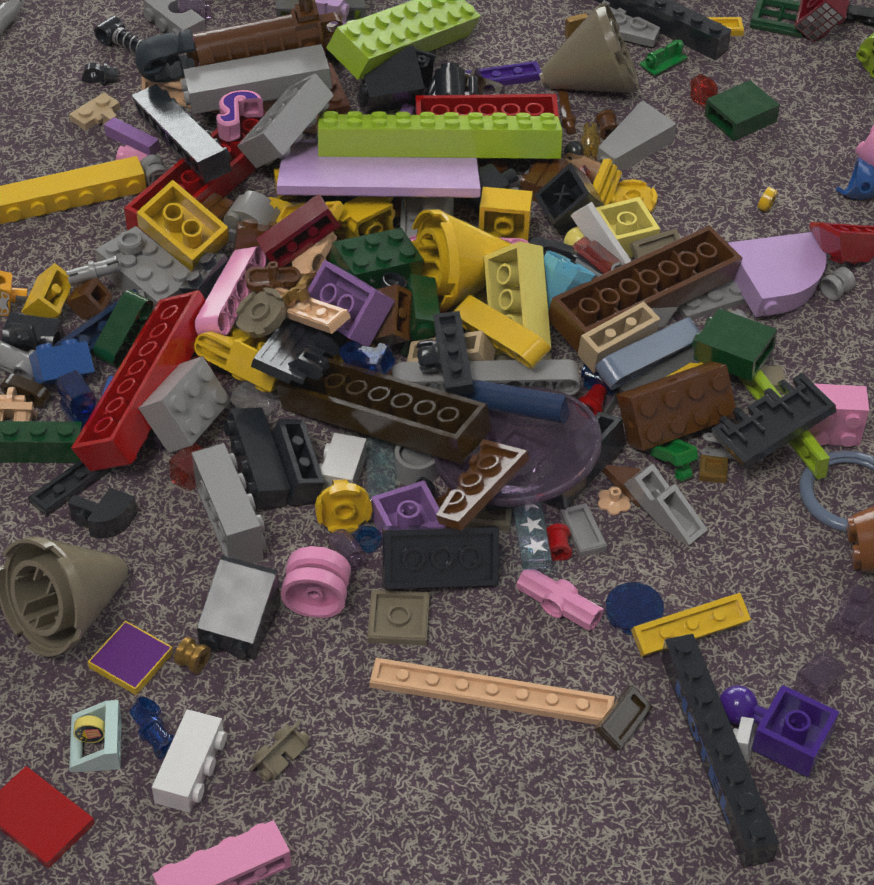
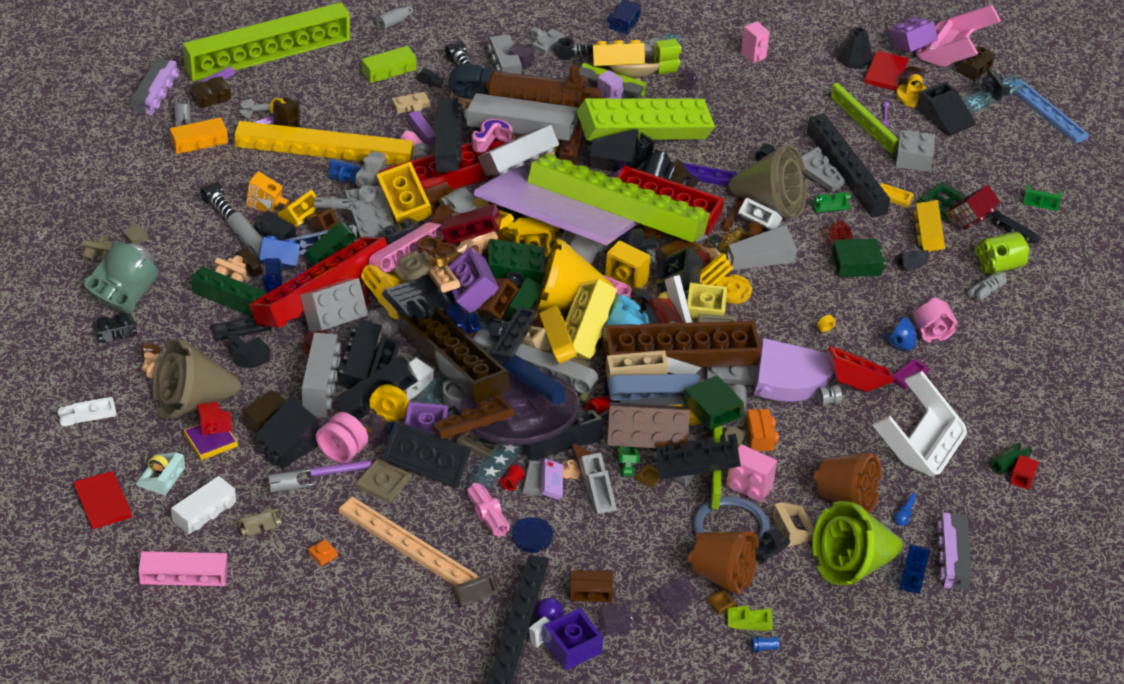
camera: 25 degrees right, 5 degrees down
(37, 73) = (389, 64): none -> lime brick
(72, 225) = (343, 171): none -> blue hips
(110, 211) = (368, 173): none -> light grey piece
(124, 629) = (213, 419): none -> red brick
(152, 728) = (195, 478): clear blue connector -> none
(186, 589) = (262, 410): none -> dark brown brick
(192, 655) = (245, 450): pearl gold wheel -> none
(276, 674) = (286, 481): none -> light grey piece
(297, 523) = (357, 399): none -> black arch
(331, 624) = (340, 468): none -> medium lavender bar
(390, 755) = (322, 552): none -> orange plate
(550, 33) = (765, 150): none -> black wheel
(599, 98) = (758, 213): none -> white brick
(607, 523) = (552, 479): none -> lavender tile
(699, 620) = (561, 556): yellow plate -> none
(758, 645) = (591, 586): none -> reddish brown brick
(790, 46) = (929, 226): none -> yellow brick
(798, 92) = (912, 259): none -> black brick
(798, 355) = (760, 430): none -> orange brick

